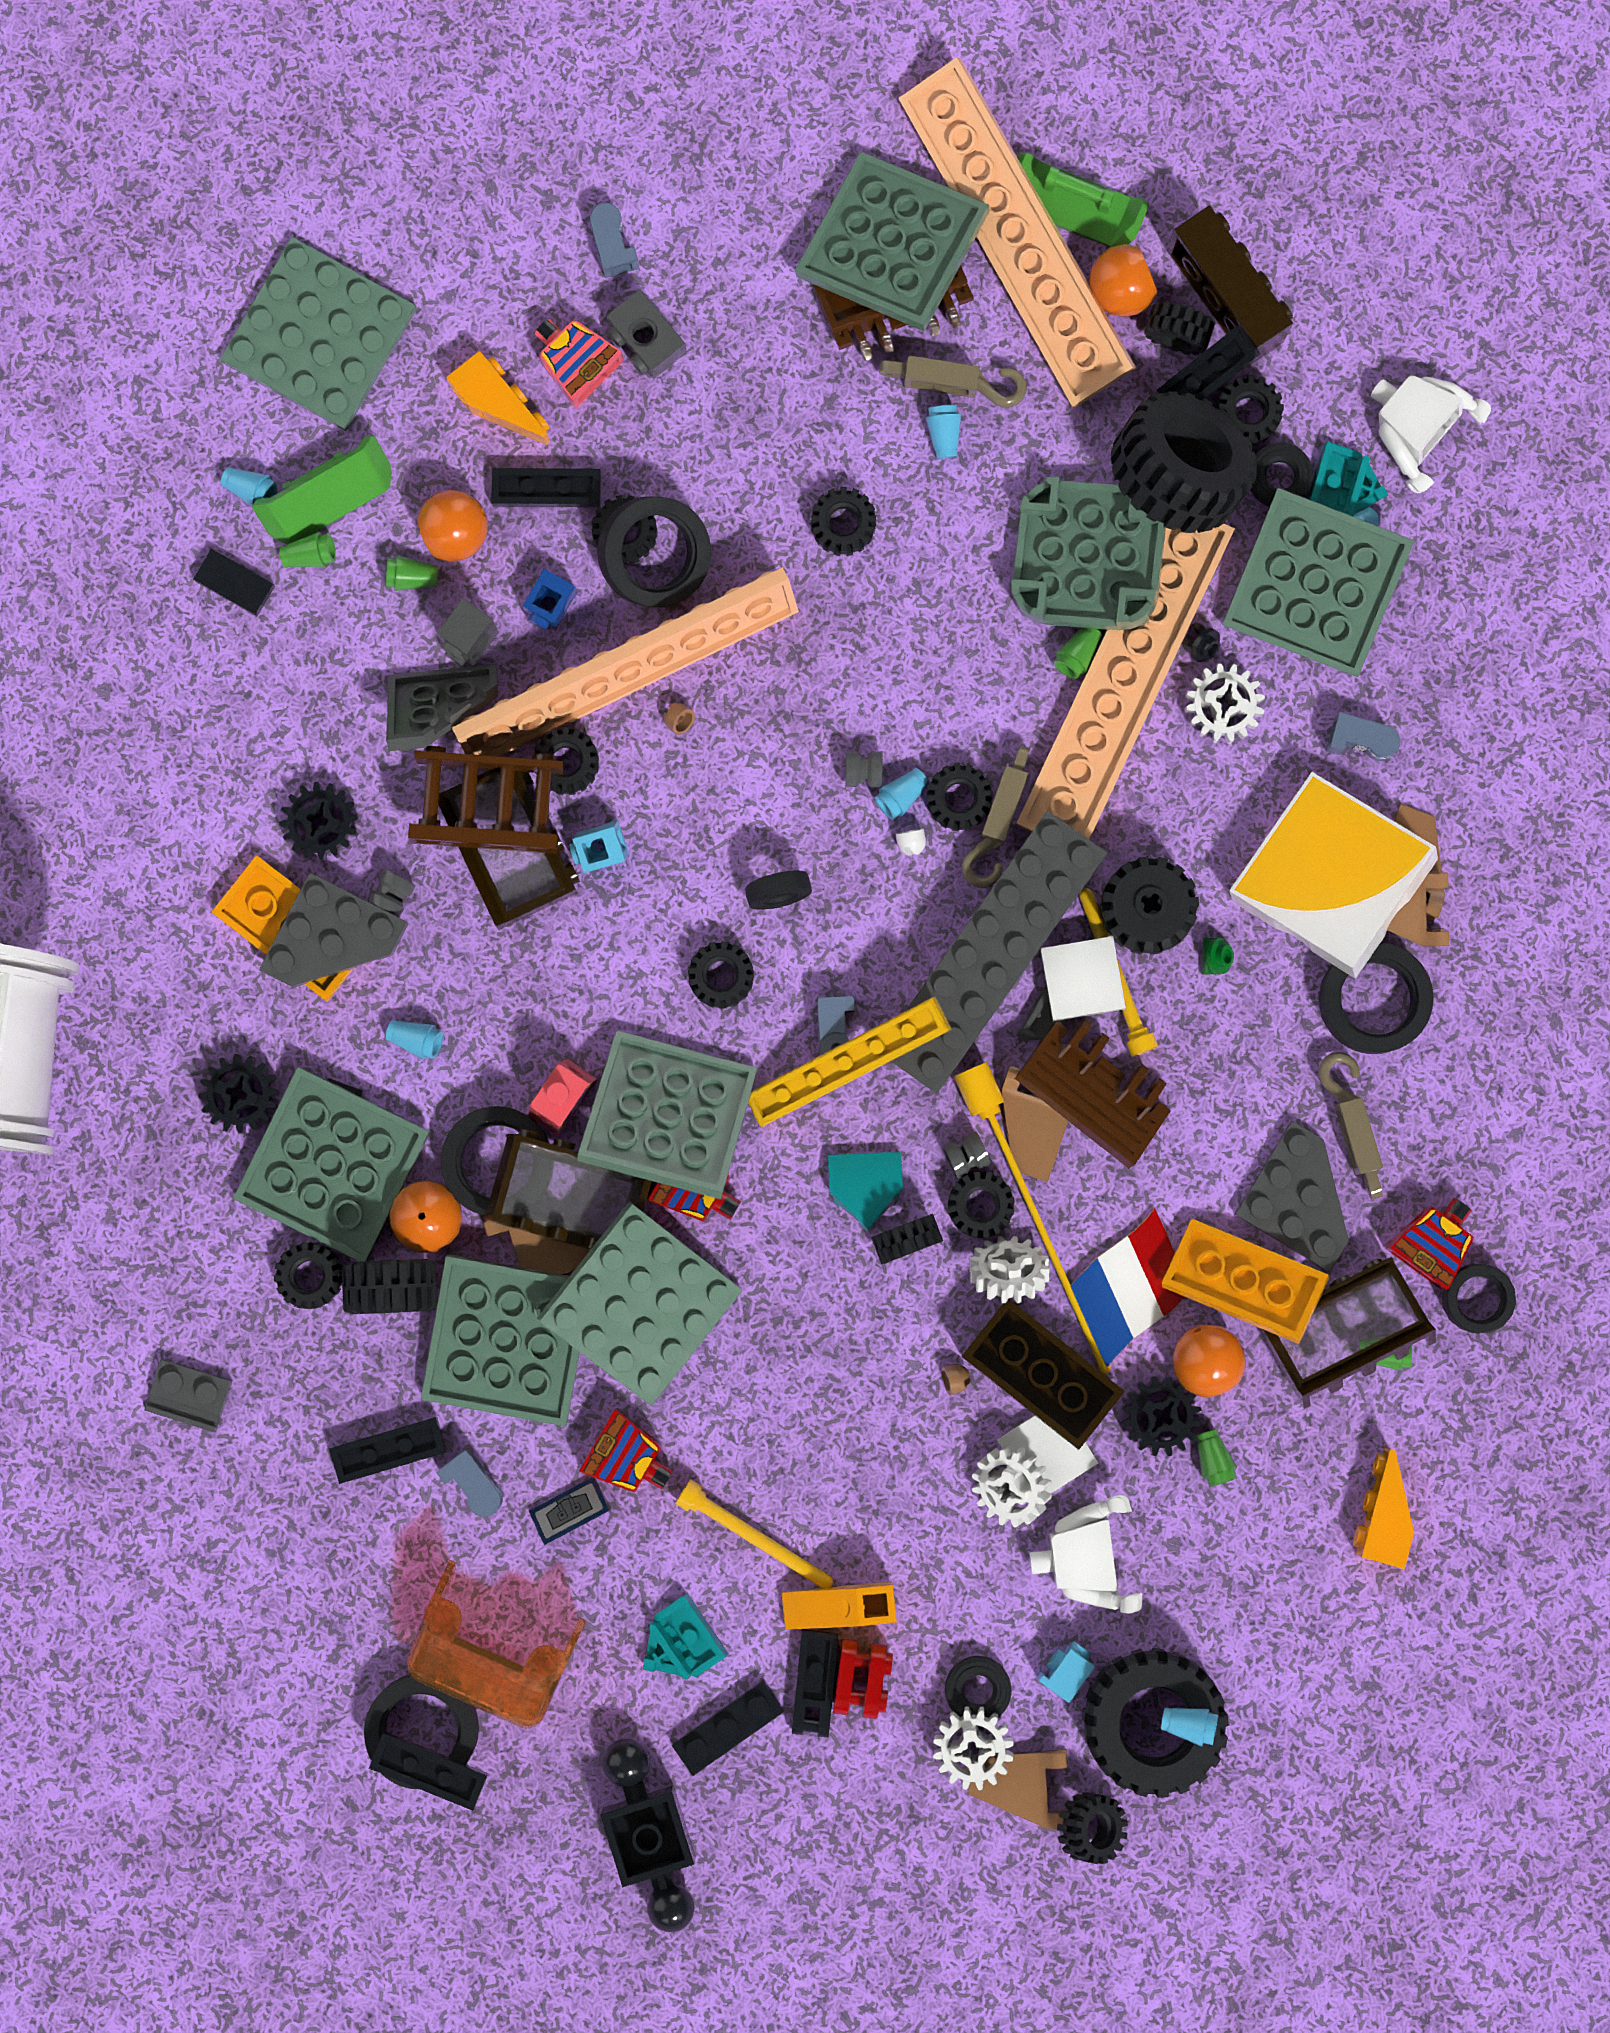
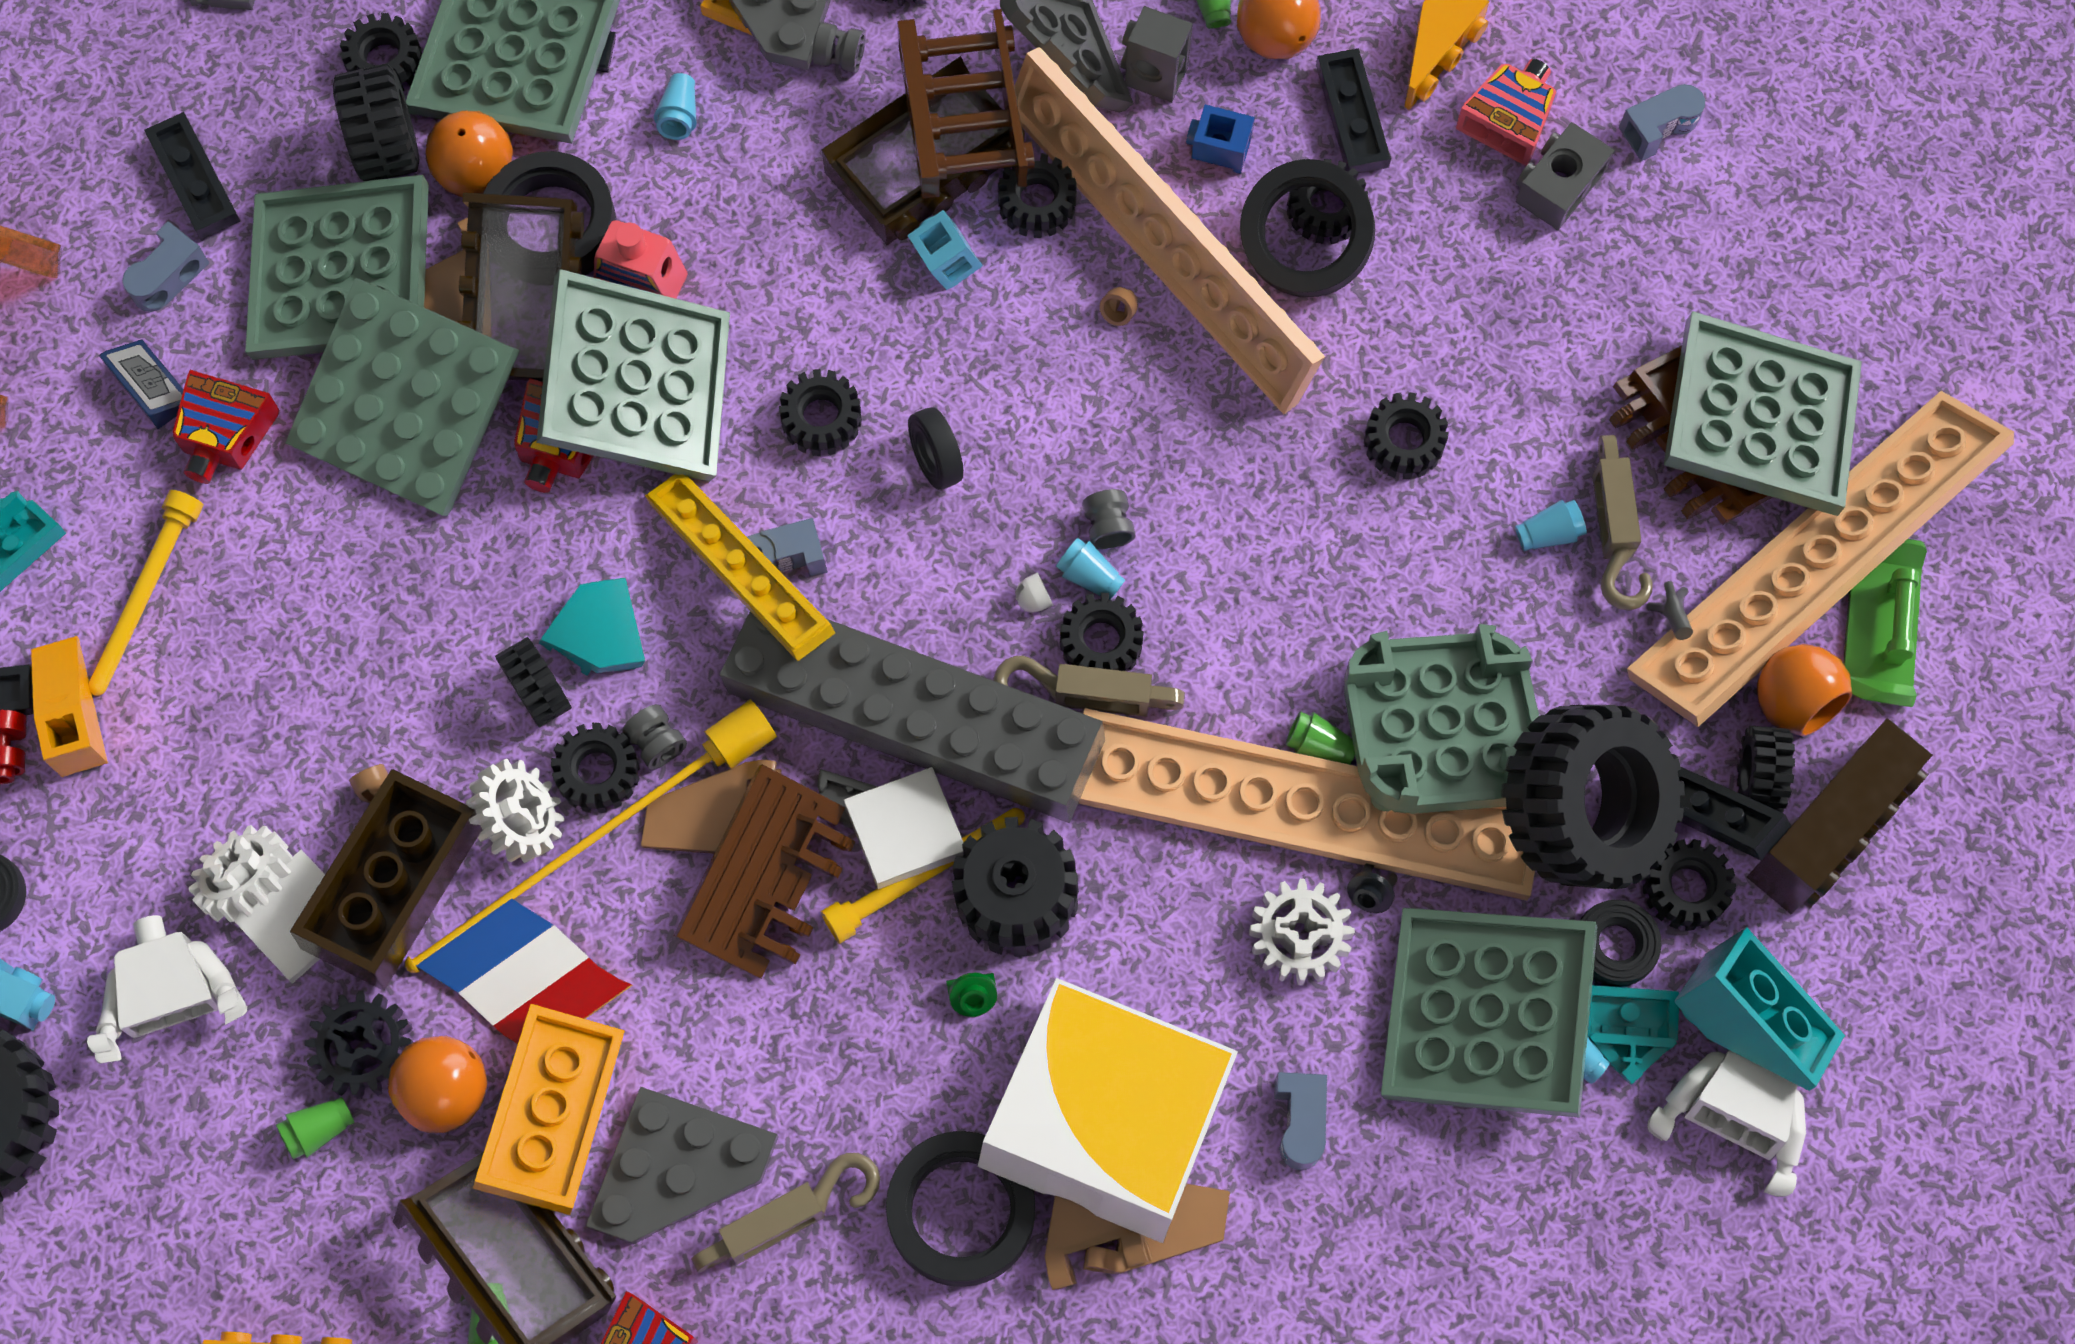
camera: 75 degrees right, 15 degrees down
(1035, 357) = (1674, 610): none -> dark grey bar
(1361, 389) = (1759, 1011): none -> teal slope

